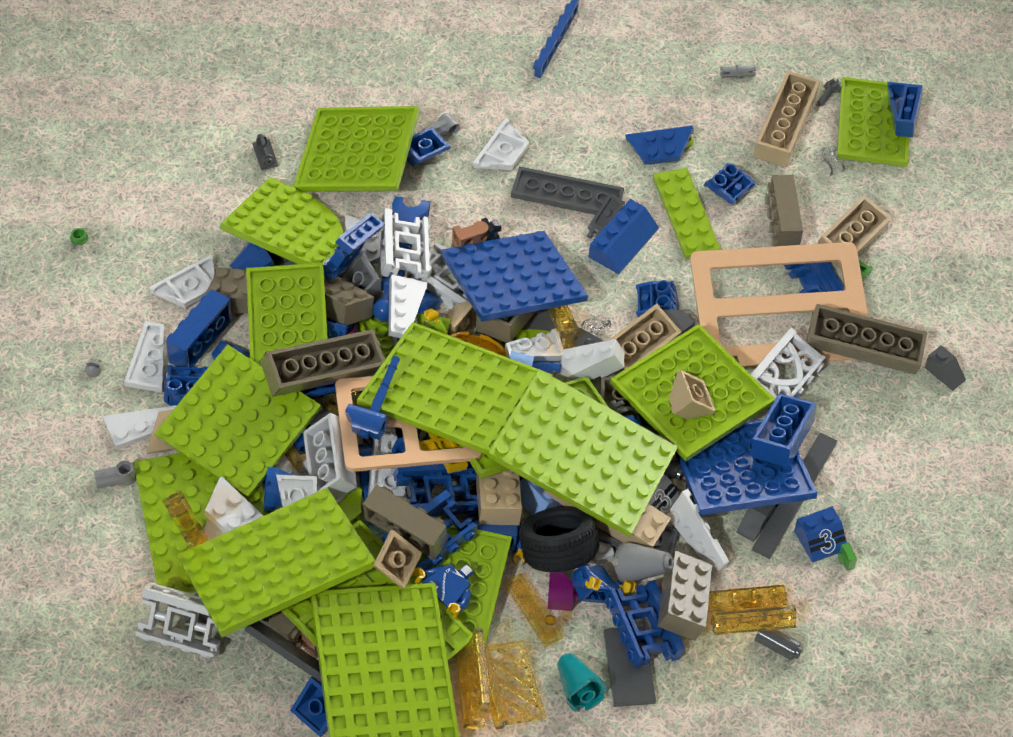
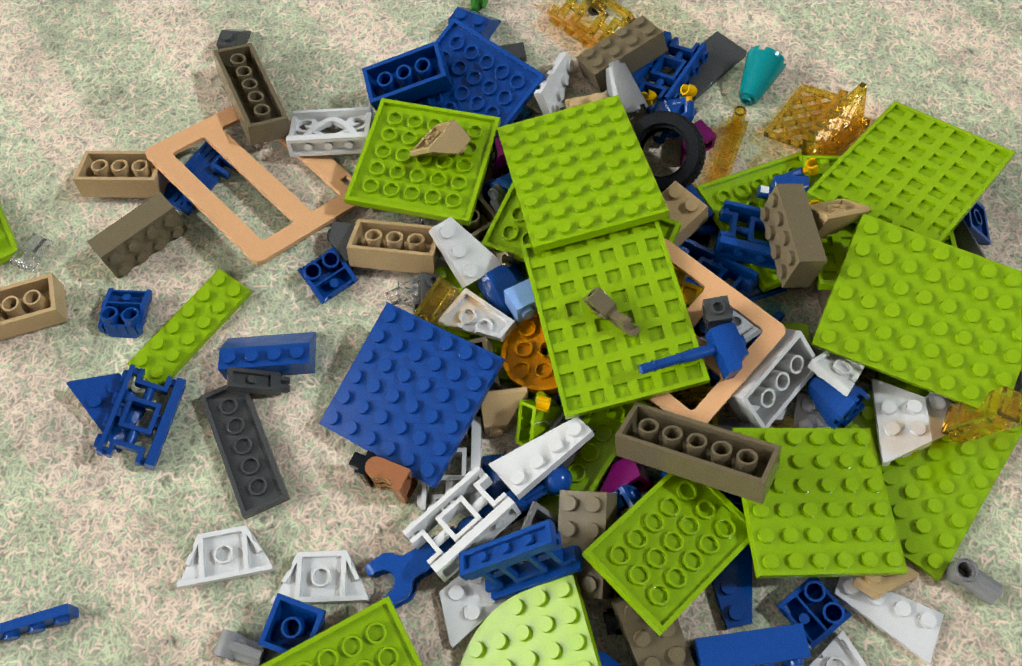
camera: 120 degrees left, 10 degrees up
(393, 431) = (716, 311): none -> dark grey brick
(443, 183) = (323, 578): none -> white wing
(458, 376) = (606, 308): none -> dark tan piece
(624, 160) = (159, 422): none -> blue fence

